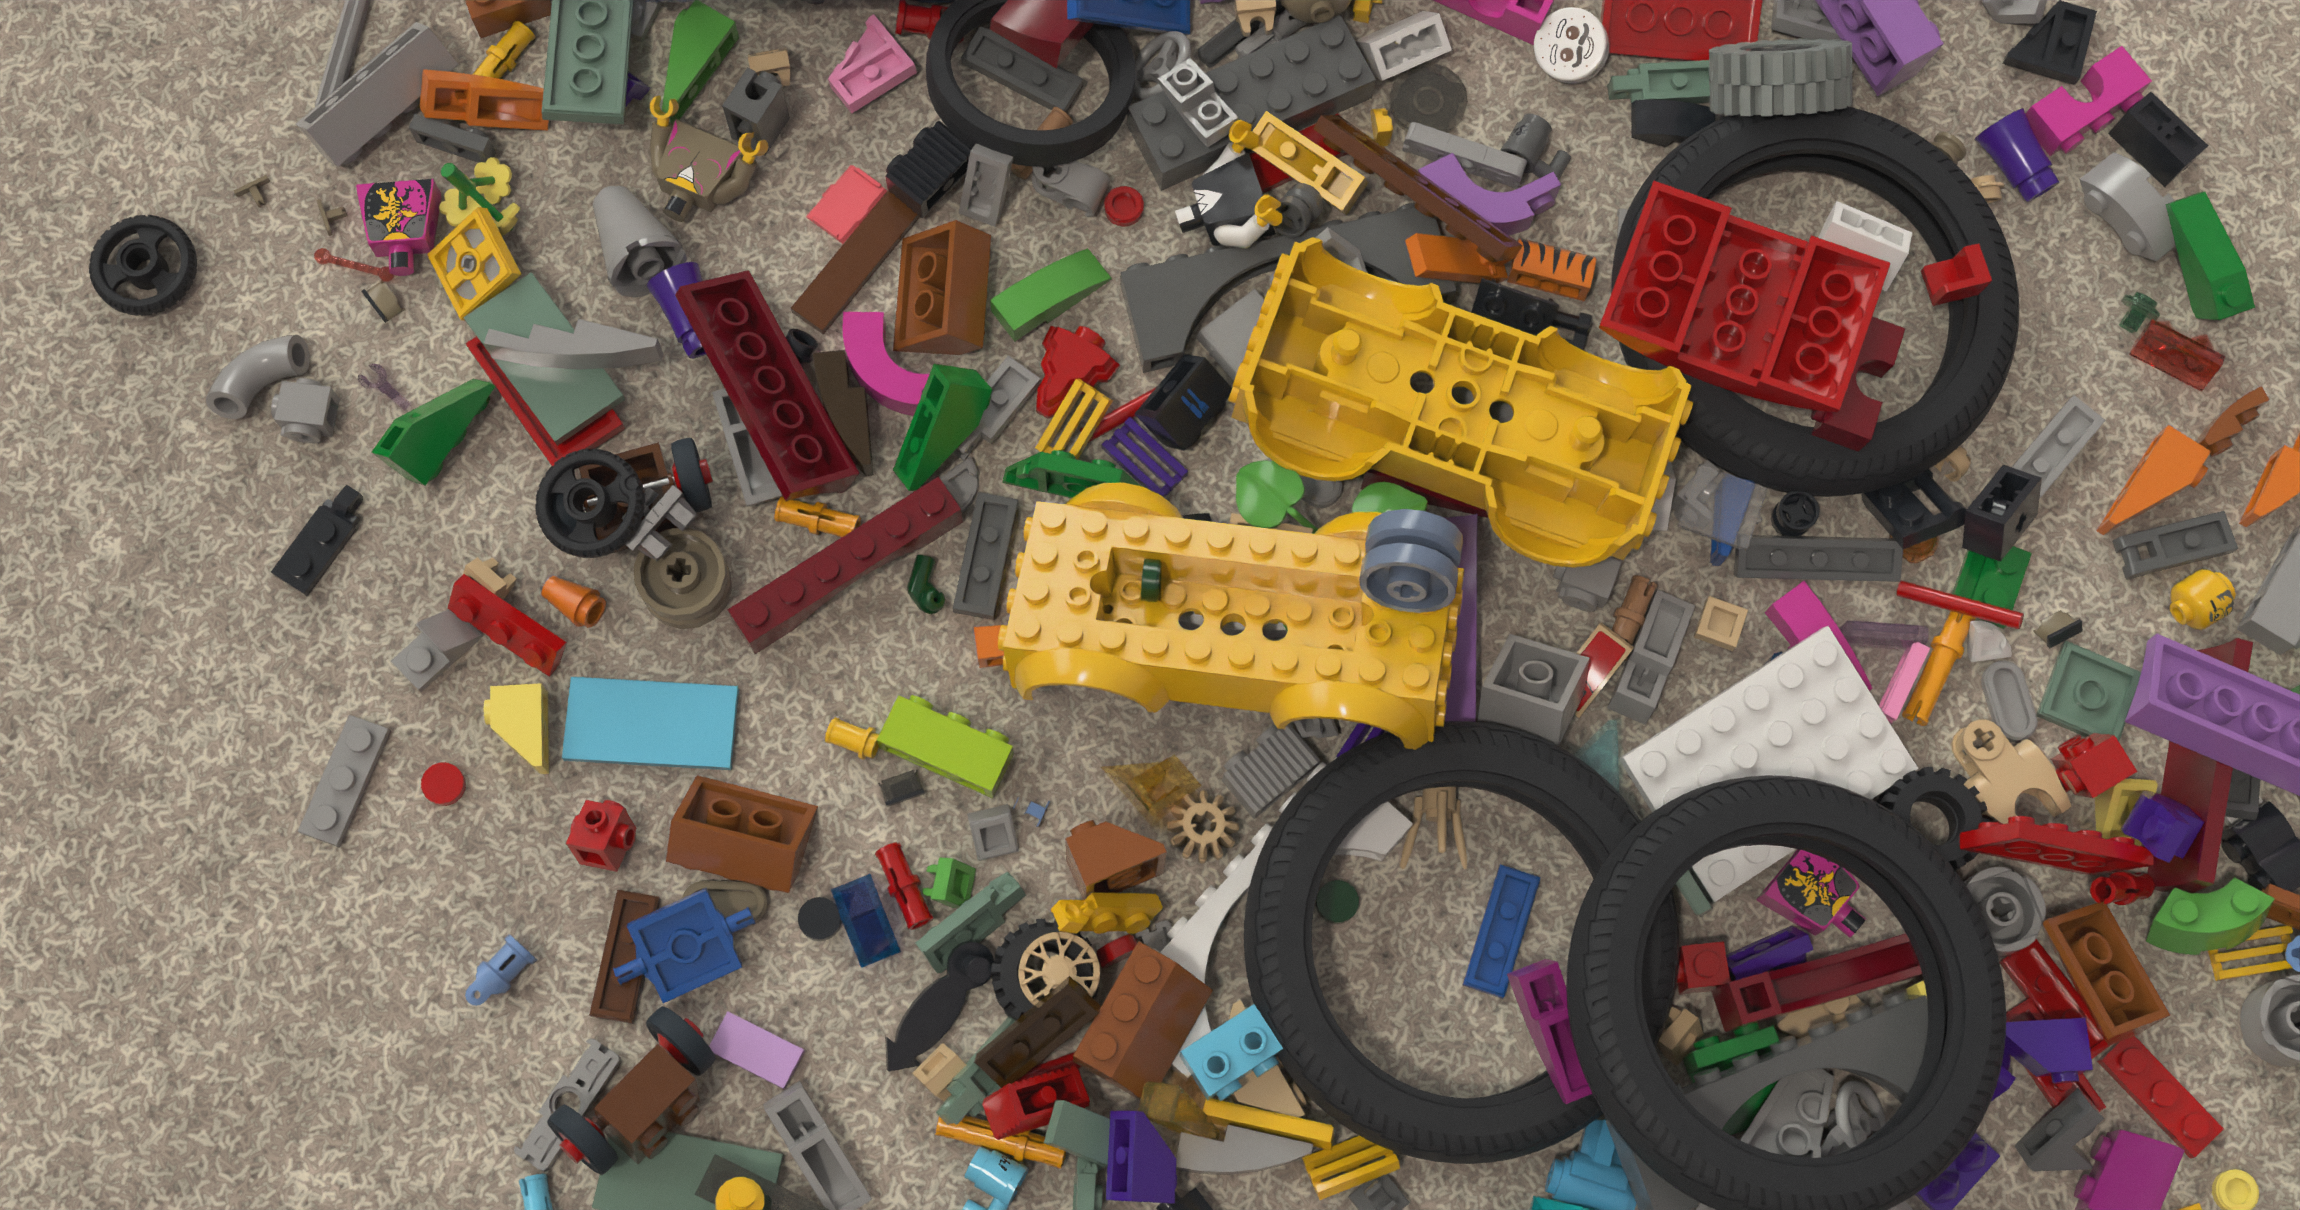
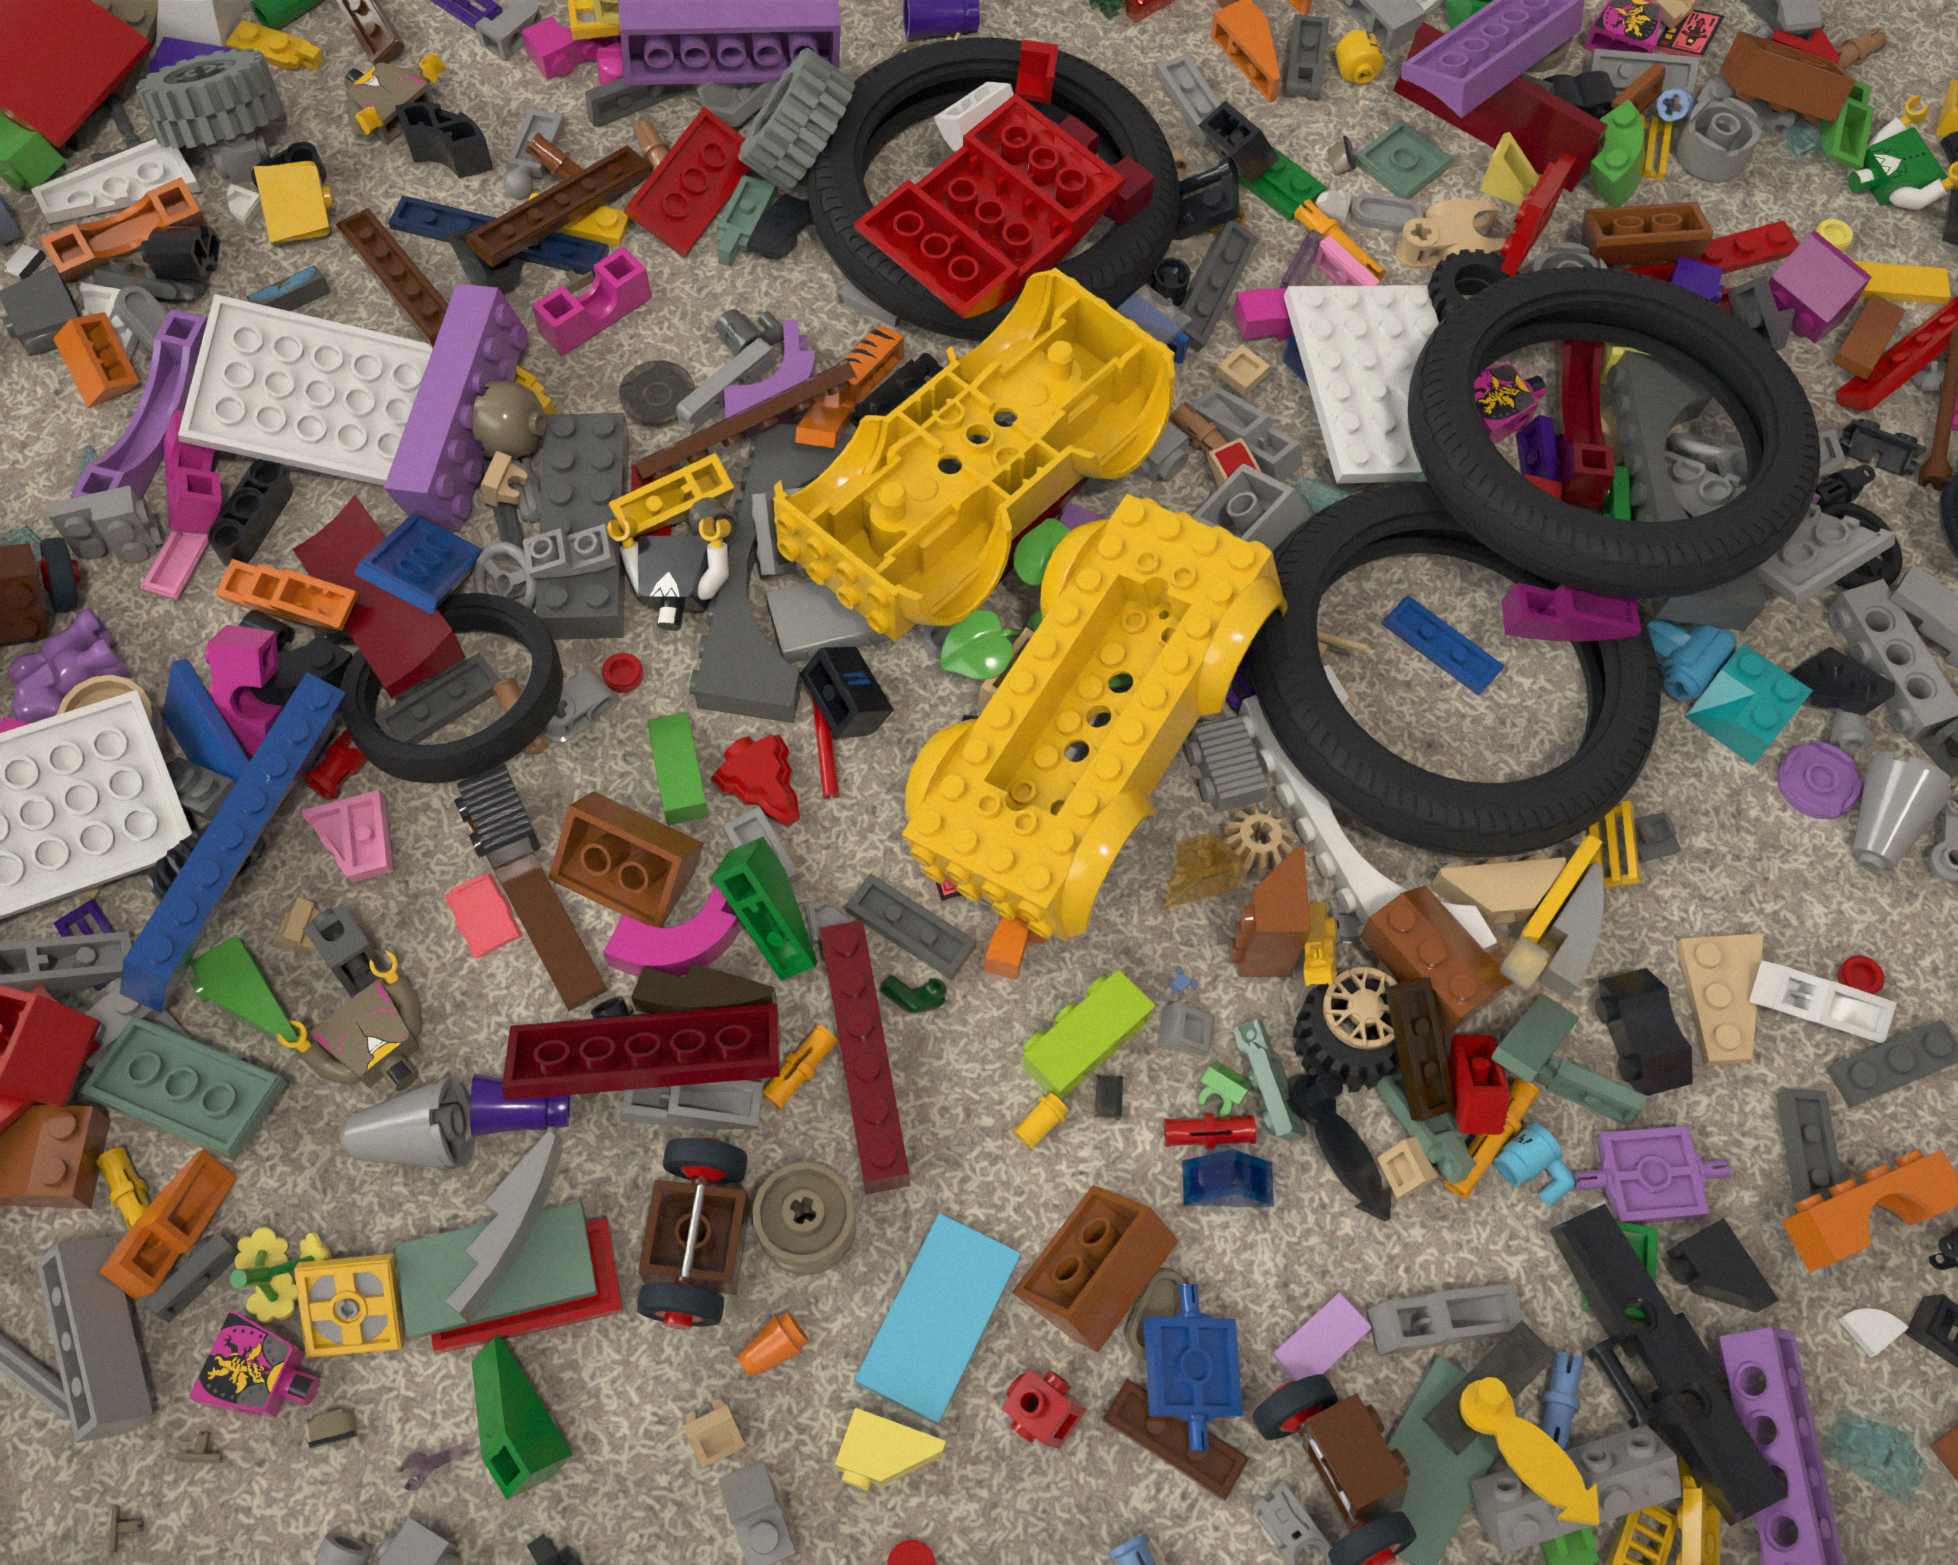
camera: 65 degrees left, 10 degrees down
(323, 256) = (243, 1477): clear red hinge -> none
(506, 625) = (769, 1425): red plate -> none
(562, 480) = (737, 1284): black wheel -> none
(669, 506) = (753, 1226): flat silver hips -> none
(819, 919) = (1210, 1226): black tile -> none
(985, 185) = (542, 772): light grey tile -> none
(1063, 474) = (872, 817): green wing -> none
(1064, 410) = (837, 825): yellow tile -> none
(1116, 950) = (1347, 955): red tile -> none
(1120, 435) = (880, 737): dark purple tile -> none
(1138, 1161) = (1567, 1012): dark purple slope -> none
(1151, 580) = (1029, 763): dark green tile -> none
(1232, 1053) = (1495, 889): medium azure brick -> none
(1381, 126) = (661, 435): yellow tile -> none
(1404, 44) = (596, 381): white brick -> none
(1411, 561) = (1138, 511): sand blue wheel -> none
(1571, 45) = (674, 263): white head -> none
(1960, 604) = (1302, 200): red piece -> none
(2092, 764) = (1473, 166): red brick -> none
(2122, 888) = (1586, 196): red pin -> none
(2162, 825) = (1548, 139): dark purple brick -> none

